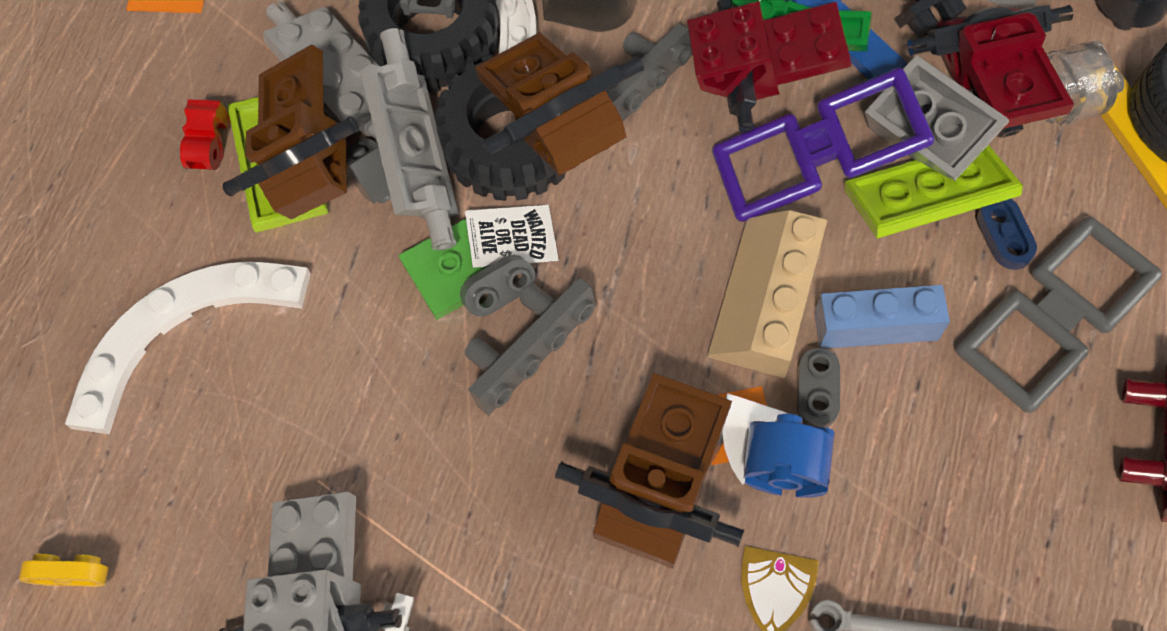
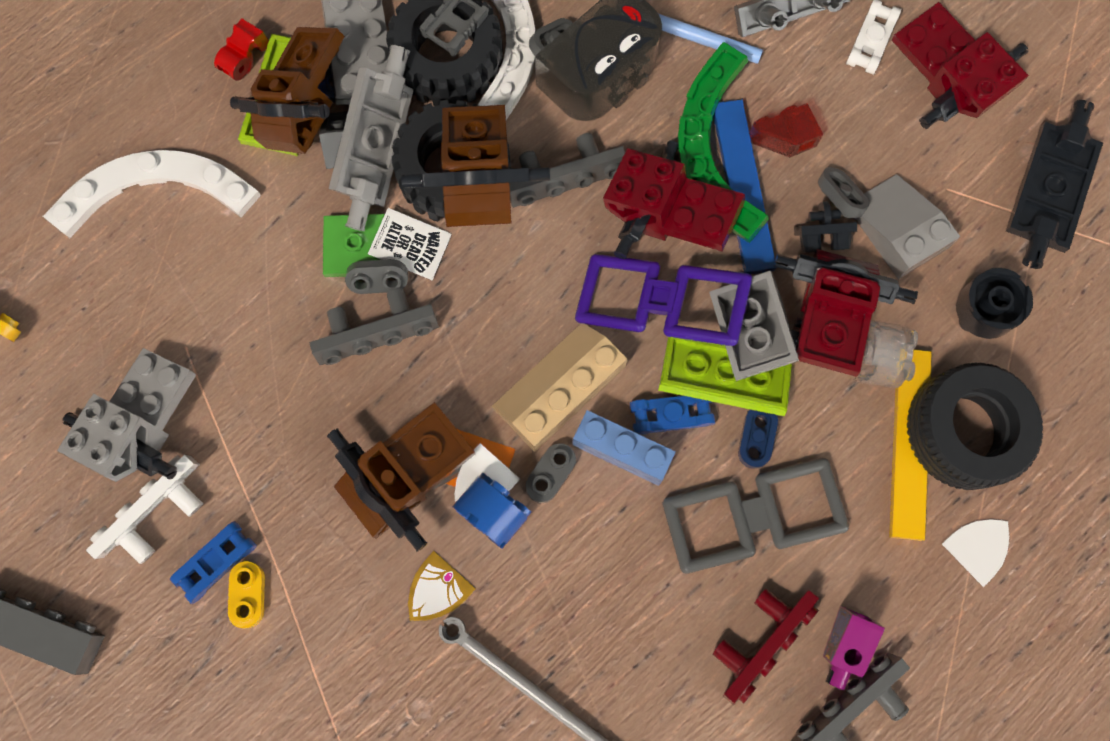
camera: 25 degrees right, 10 degrees up
(903, 257) = (671, 414): none -> blue plate

